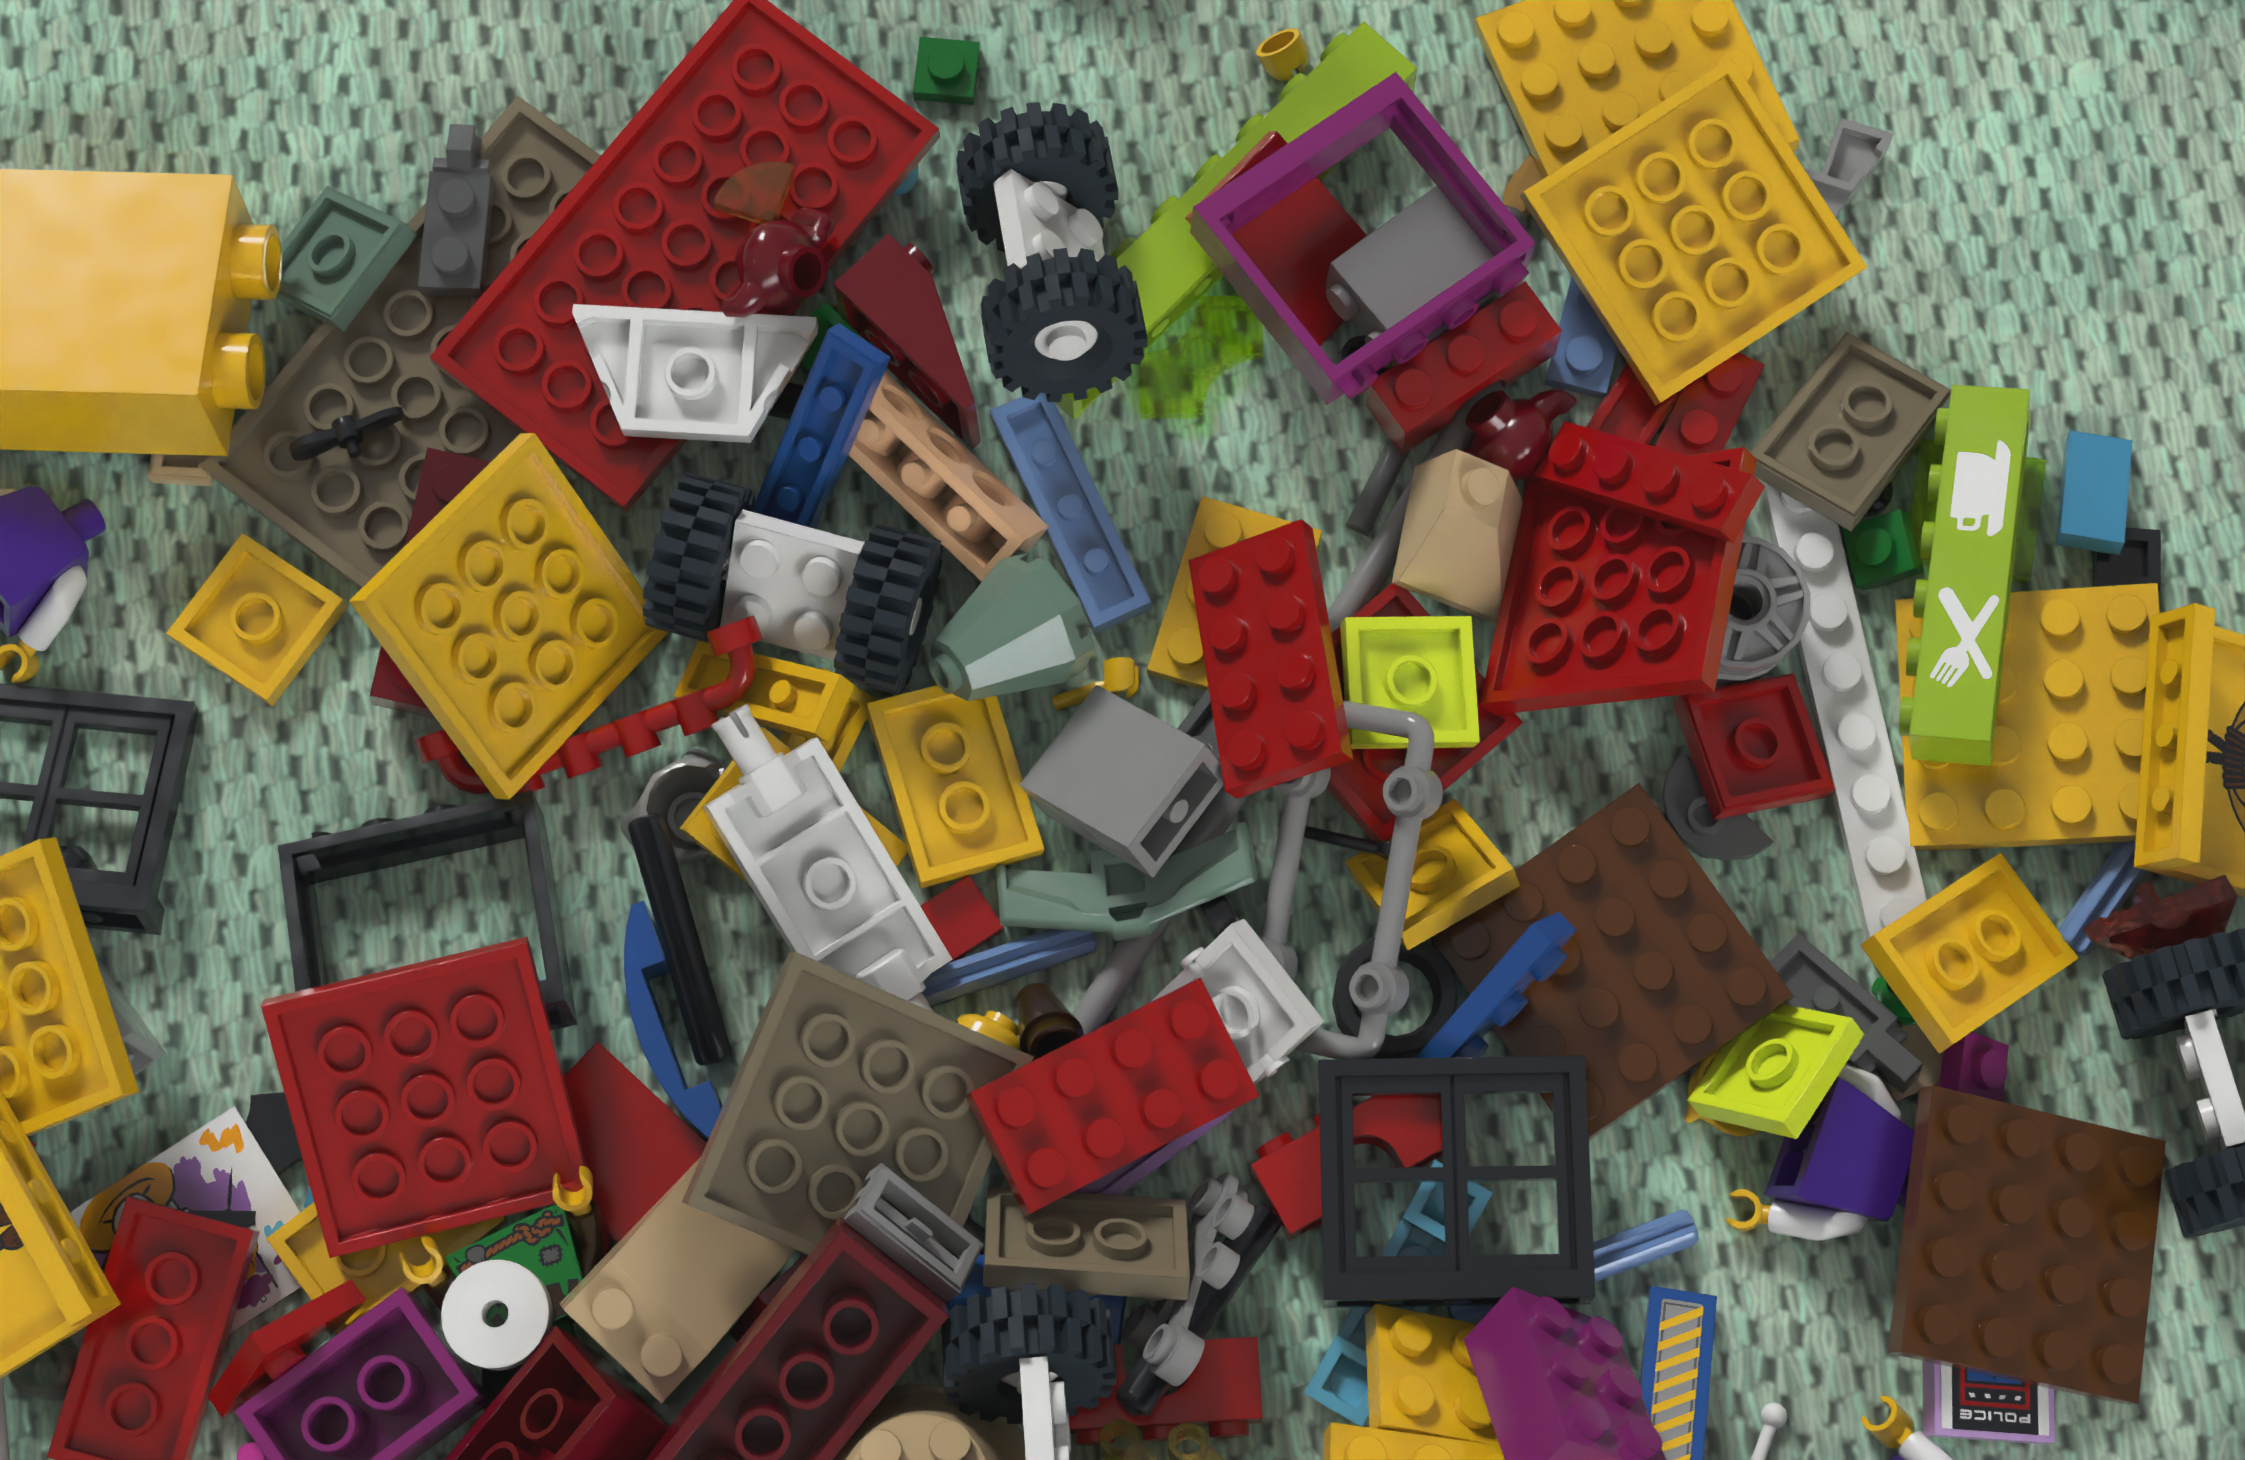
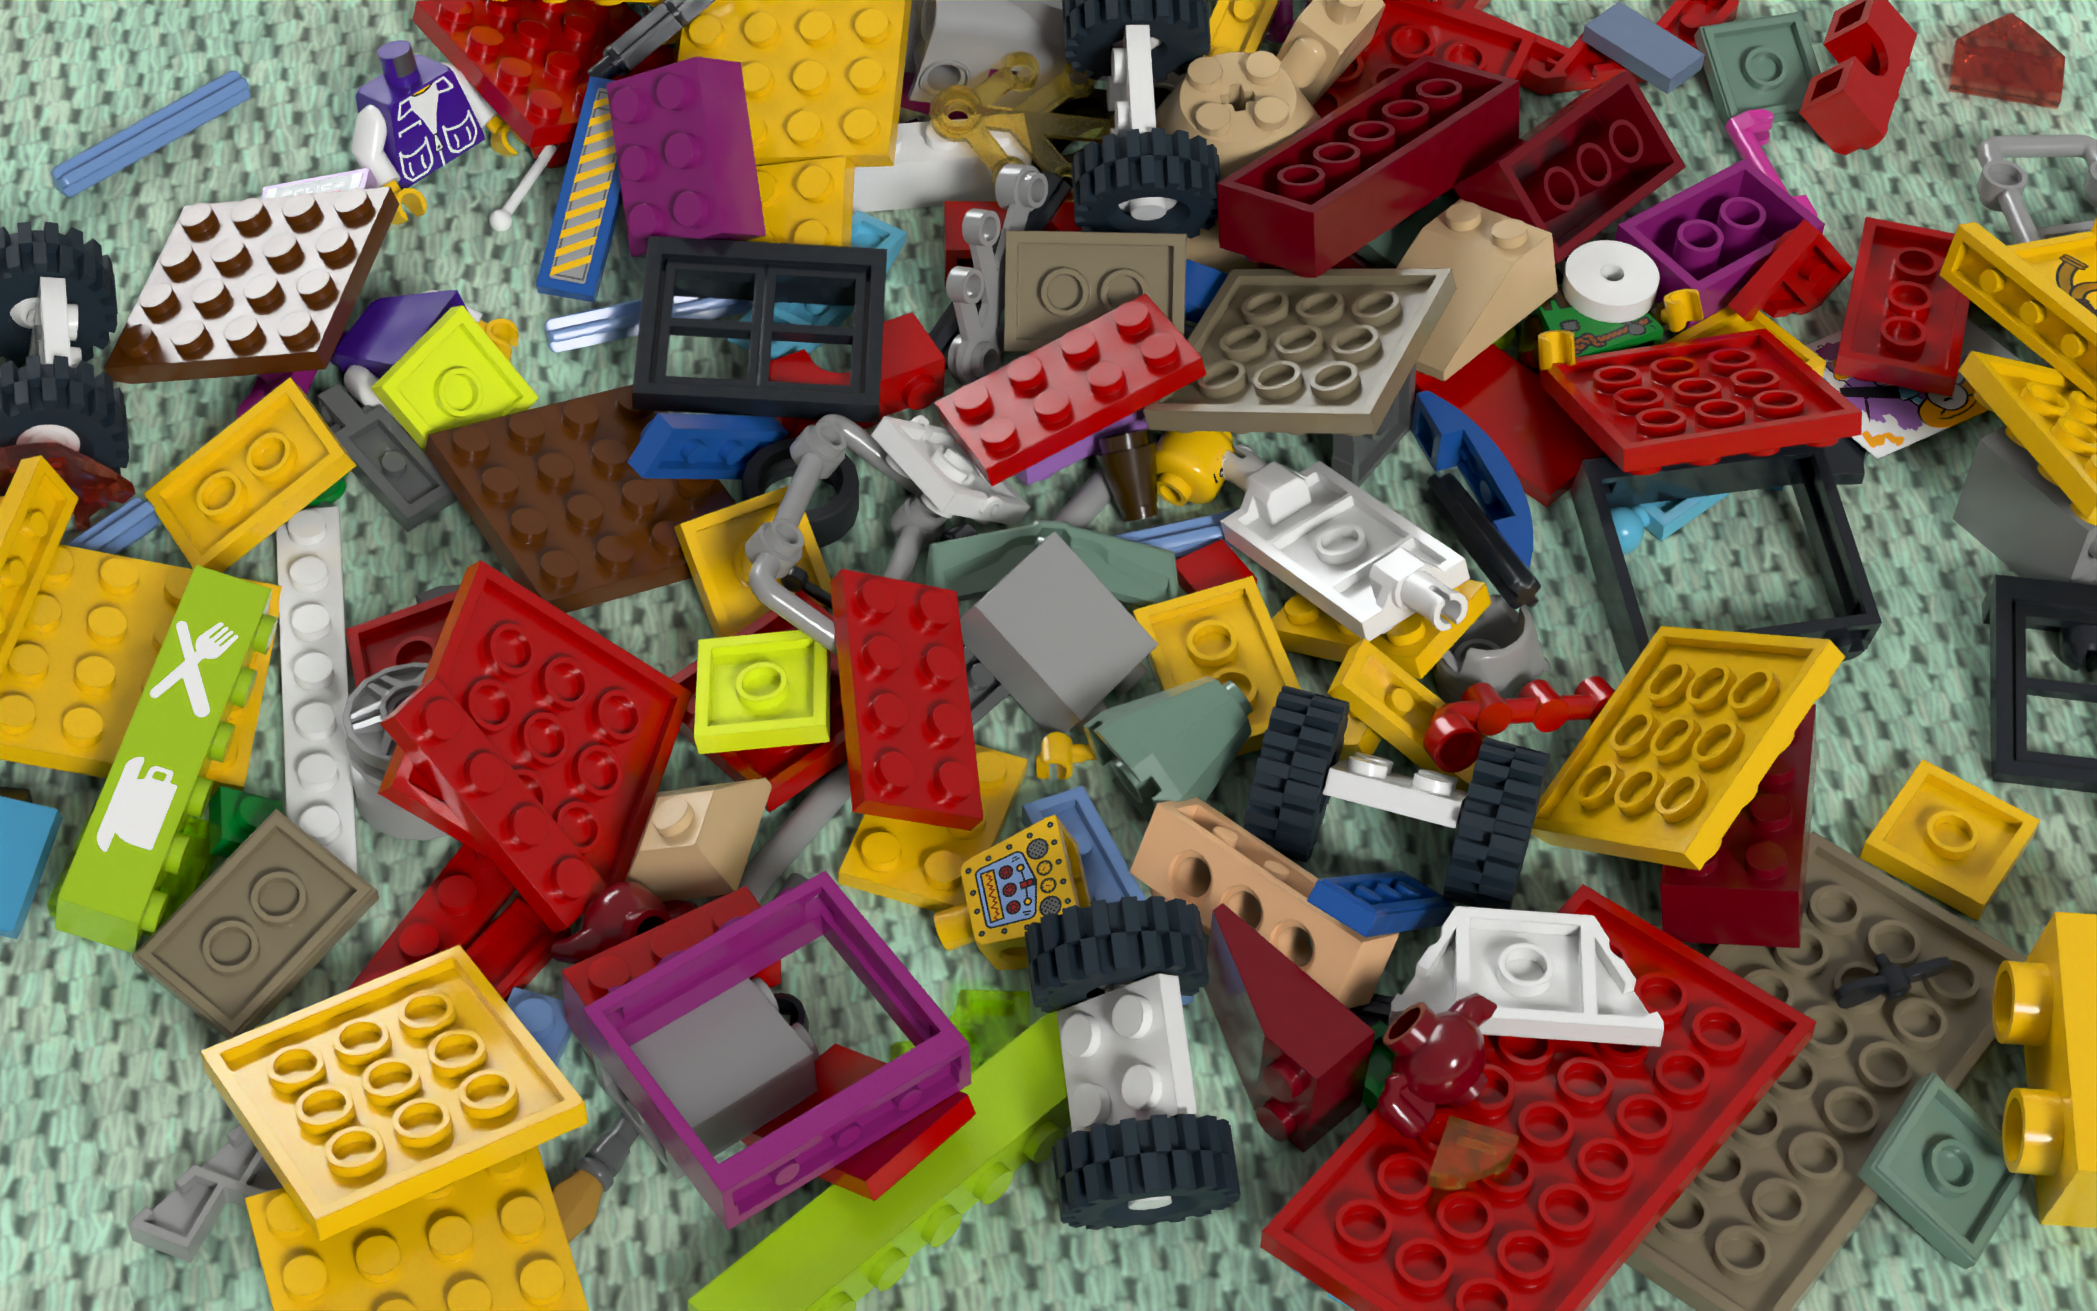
camera: 175 degrees right, 25 degrees down
(457, 219) = (1812, 1189): dark grey hinge -> none
(910, 1240) = (1283, 287): light grey tile -> none
(1144, 477) = (1011, 888): none -> yellow torso

